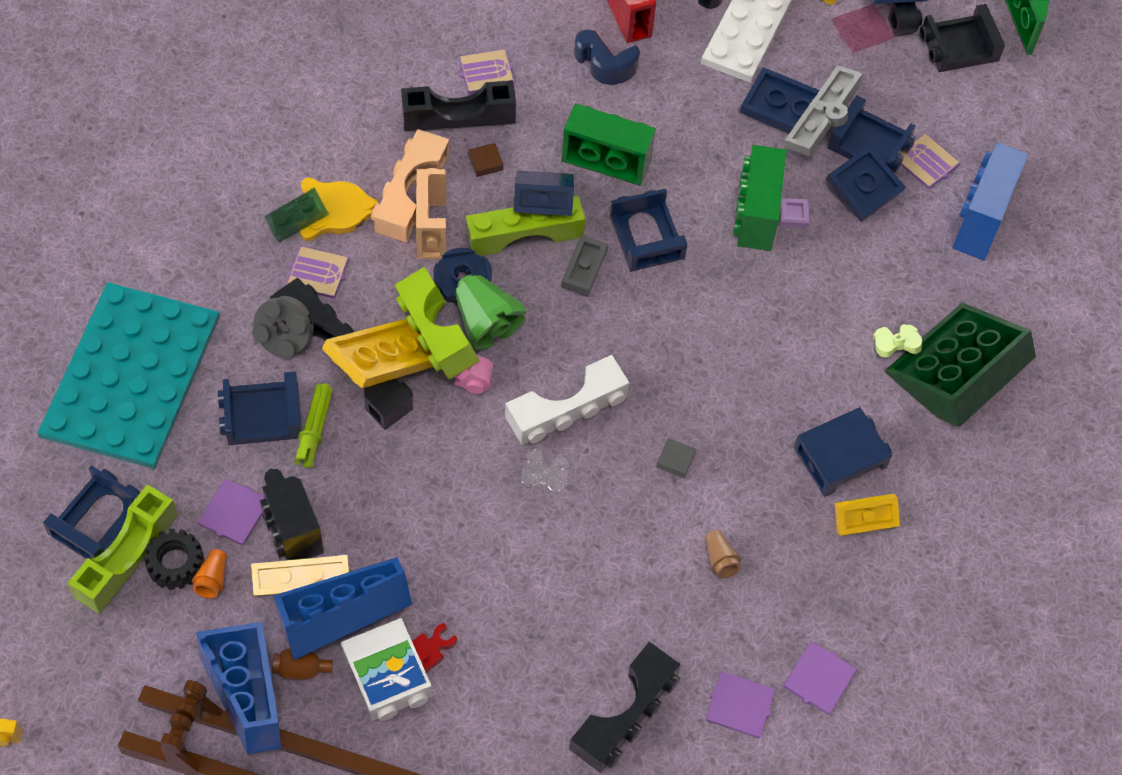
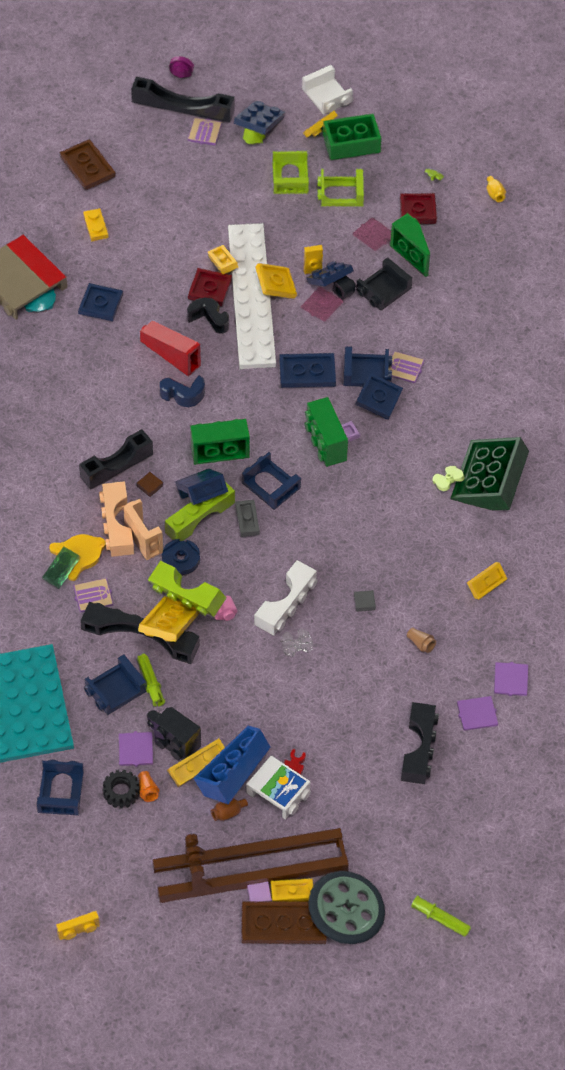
camera: 25 degrees left, 5 degrees down
(104, 575) = (91, 798): lime arch -> none
(242, 678) = (212, 827): blue wedge -> none
(271, 337) = (92, 624): dark grey plate -> none
(484, 68) = (114, 431): piece -> none
(487, 311) = (210, 567): bright green cone -> none
(824, 111) = (332, 364): light grey hinge -> none
(842, 450) = (453, 552): dark blue panel -> none
(988, 200) = (454, 373): wedge -> none

